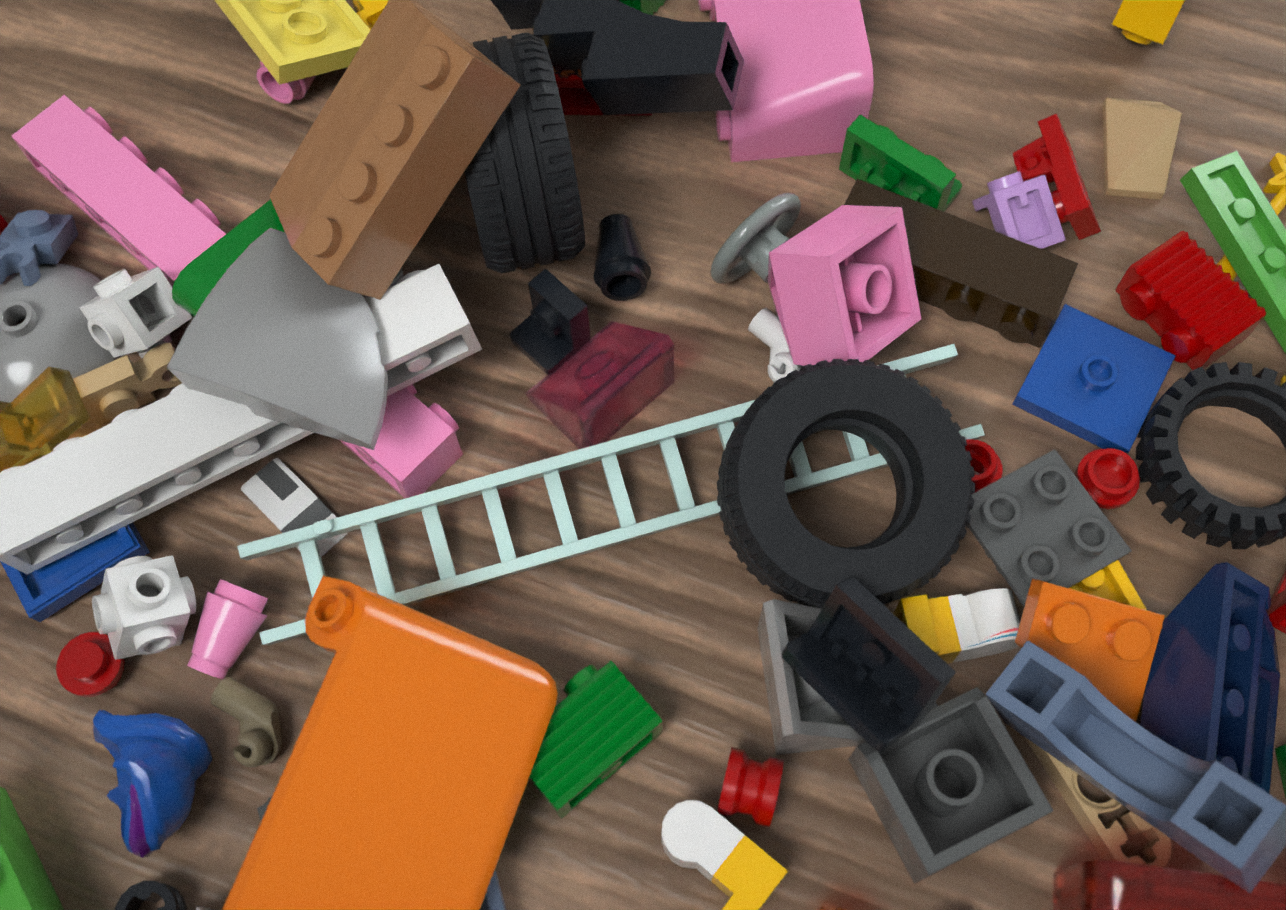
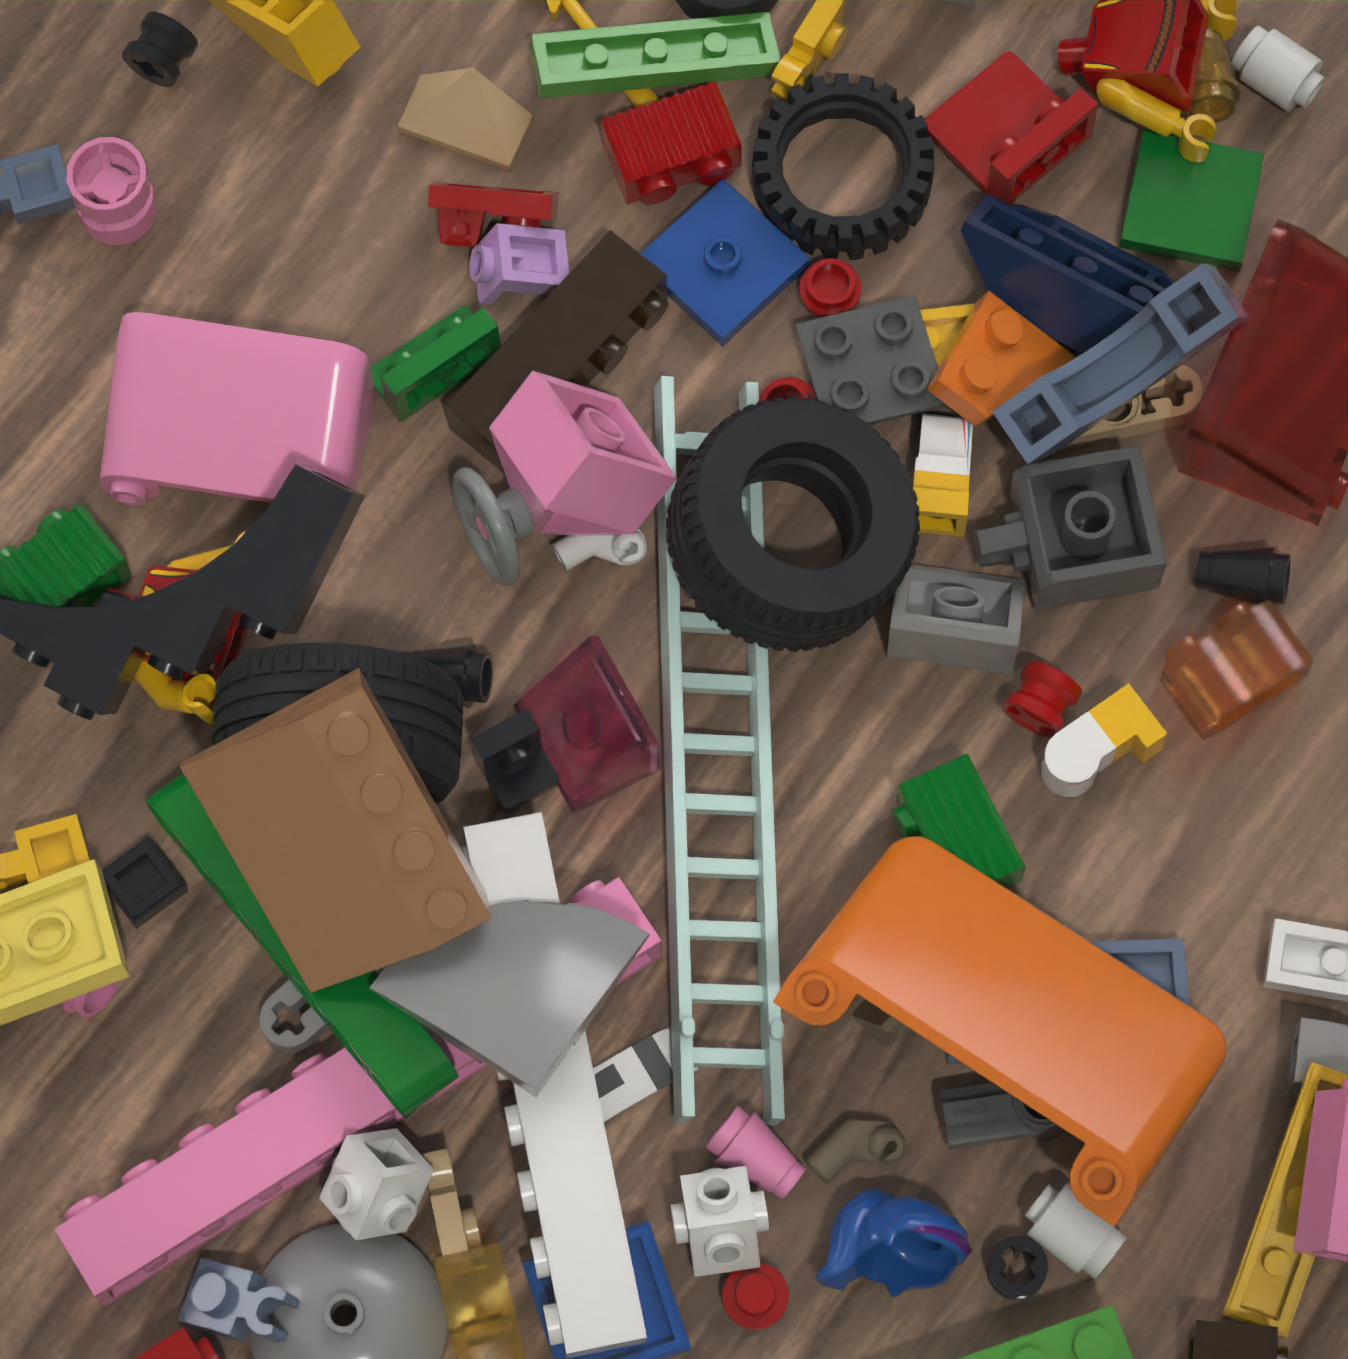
camera: 75 degrees left, 5 degrees up
(868, 665) = (979, 551): black bracket -> none

